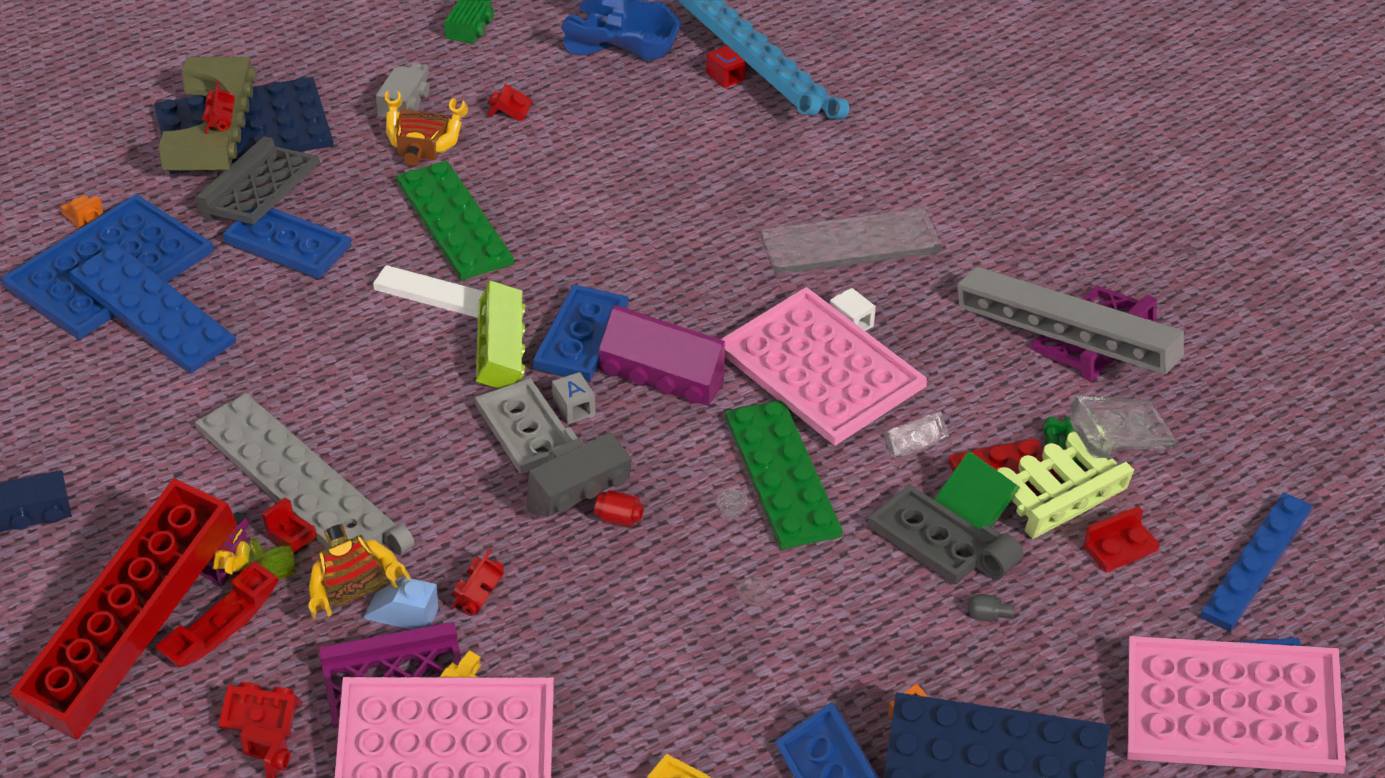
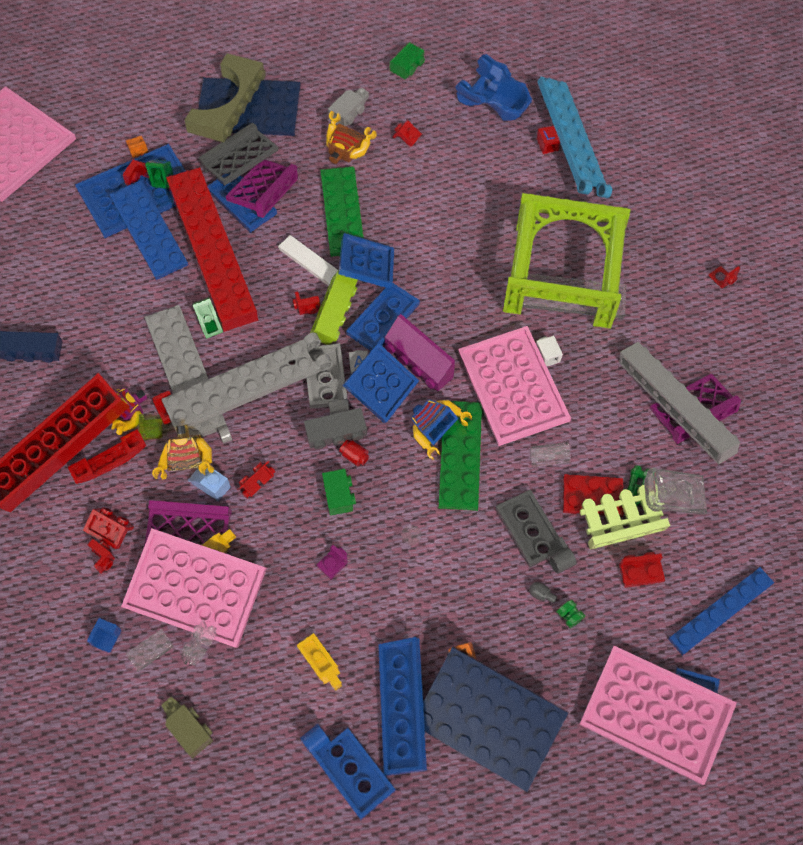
camera: 20 degrees right, 20 degrees up
(101, 233) = (133, 172): none -> red bracket
(144, 227) = (158, 171): none -> green slope
(218, 109) = (222, 106): red hinge -> none
(272, 307) = (212, 250): none -> red brick
(302, 395) = (207, 317): none -> slope
(335, 217) = (273, 192): none -> magenta fence
(405, 460) = (245, 383): none -> light grey hinge
(453, 344) = (307, 305): none -> red bracket
(526, 263) = (366, 261): none -> blue plate
(617, 564) = (338, 492): none -> green brick
(620, 403) = (381, 383): none -> blue plate
(652, 655) = (333, 562): none -> magenta bracket
(725, 433) = (434, 420): none -> torso
(732, 502) = (422, 467): clear plate -> none
(881, 151) = (608, 298): none -> lime arch
(977, 492) = (566, 511): green tile -> none
(1045, 620) = (571, 613): none -> green wheel
(1065, 170) = (729, 278): none -> red bracket

